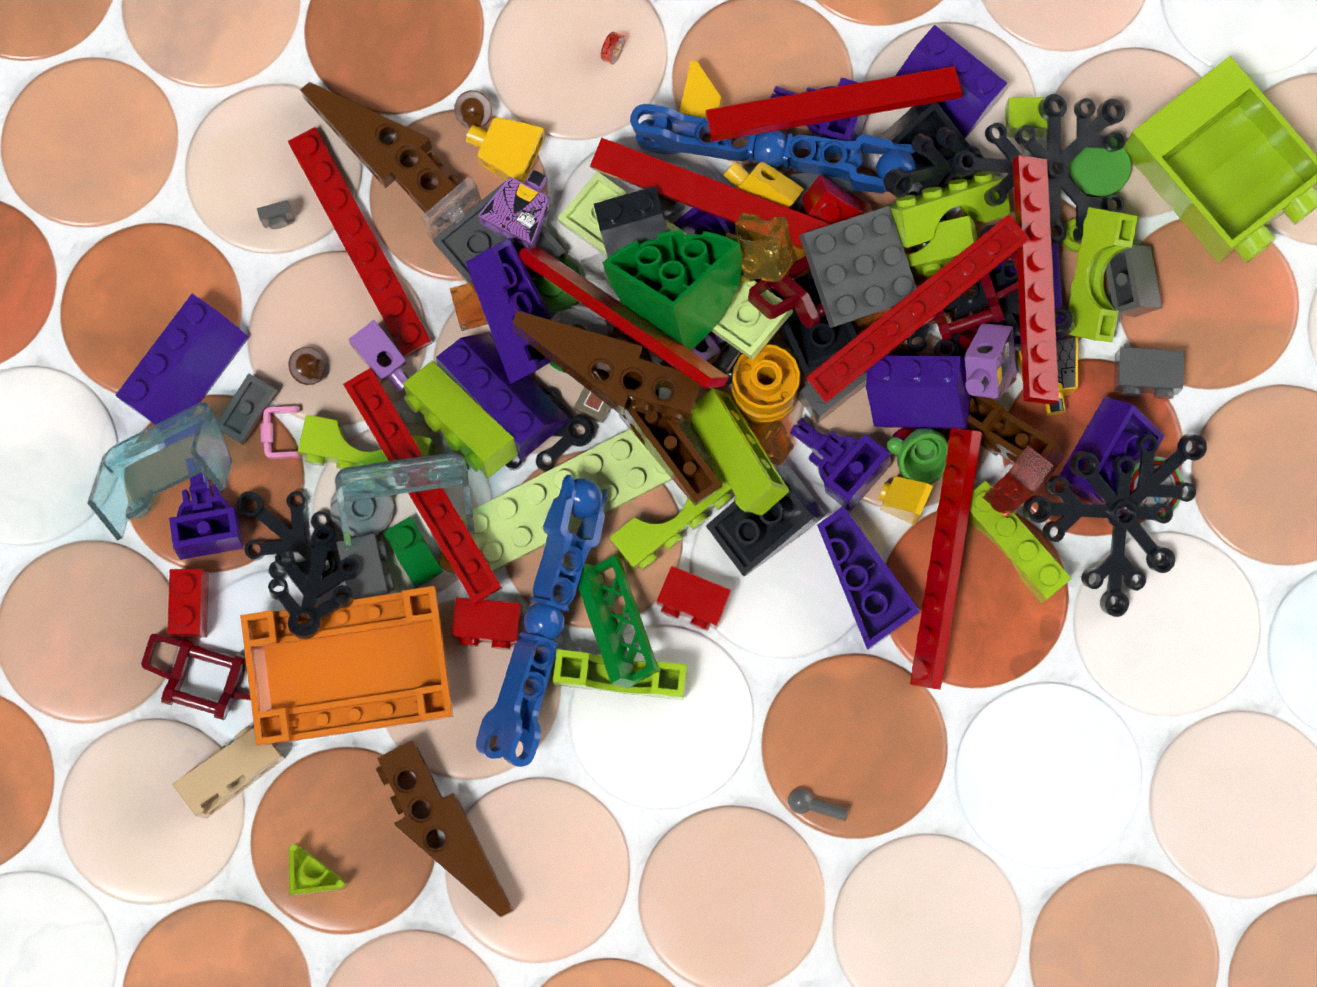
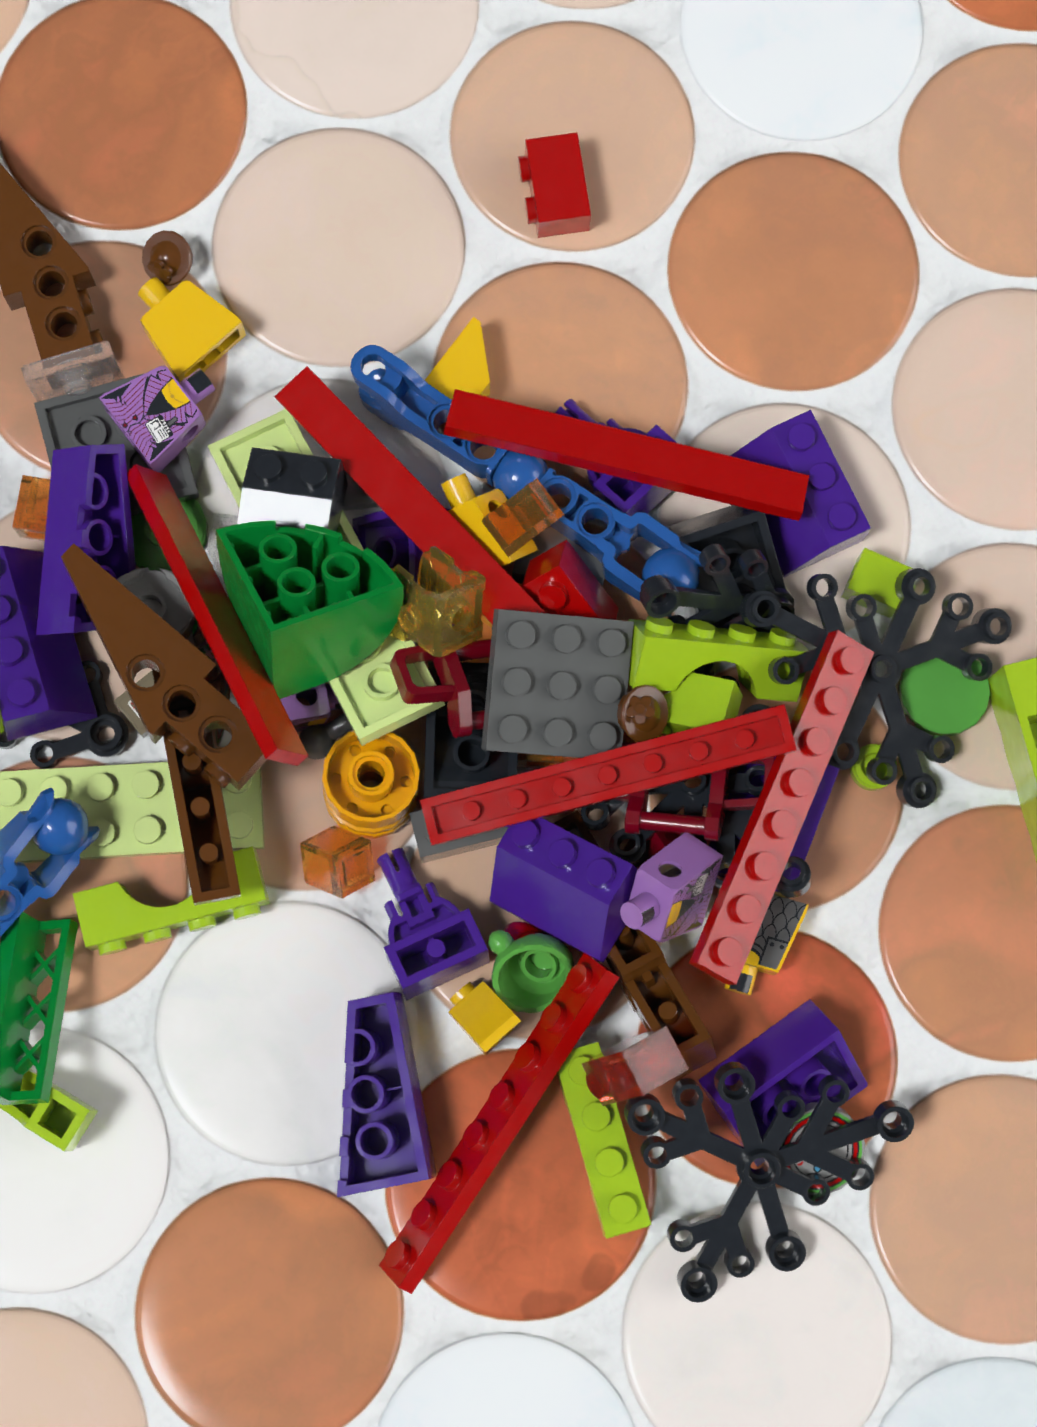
camera: 15 degrees right, 0 degrees up
(612, 47) = (384, 257): clear red tile -> none
(693, 598) = (147, 1023): red brick -> none
(737, 453) = (288, 858): lime brick -> none
(756, 538) = (292, 960): black slope -> none
(787, 171) = (522, 517): none -> clear orange panel
(802, 801) = (165, 1357): dark grey bar -> none
(921, 260) = (643, 713): none -> reddish brown hat
(1103, 237) = (902, 789): lime arch -> none
(1133, 282) = (917, 861): dark grey brick -> none
(1148, 372) = (884, 992): dark grey brick -> none

